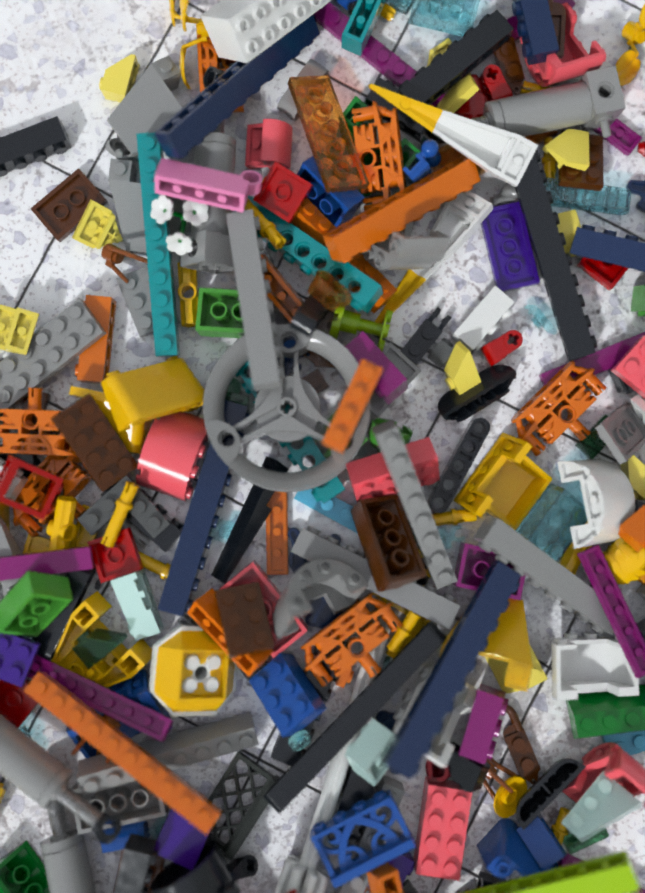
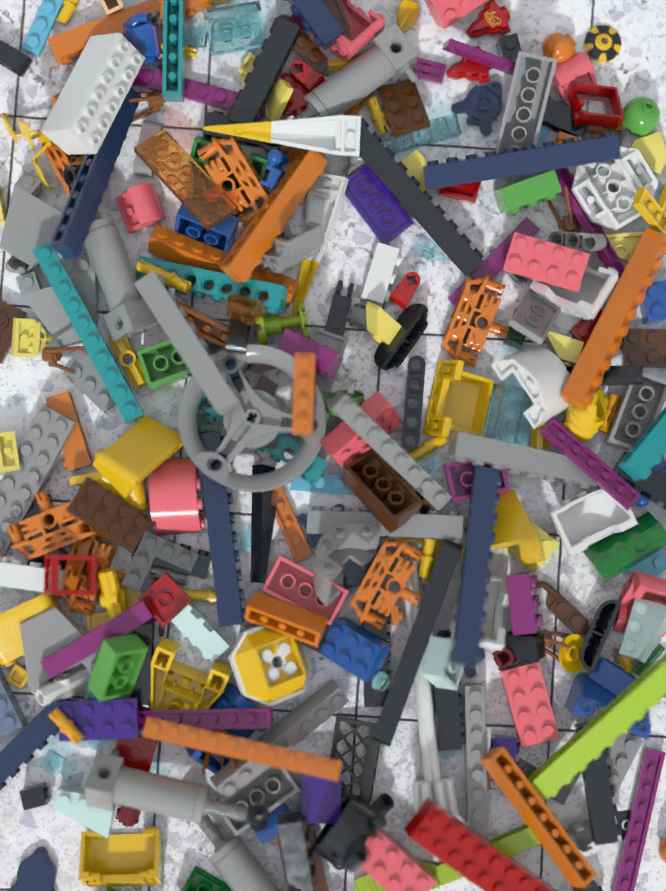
camera: 20 degrees left, 0 degrees up
(96, 645) = (182, 679): clear green slope -> none
(119, 515) = (154, 563): yellow pin -> none
(194, 212) = (104, 294): white plant -> none
(206, 184) = (108, 267): bright pink hinge -> none
(244, 620) = (293, 603): reddish brown plate -> none
(283, 192) = (171, 244): red plate -> none
(331, 45) = (154, 100): none -> dark orange plant
(366, 861) = (491, 728): blue fence -> none
(570, 149) = (390, 103): light yellow slope -> none

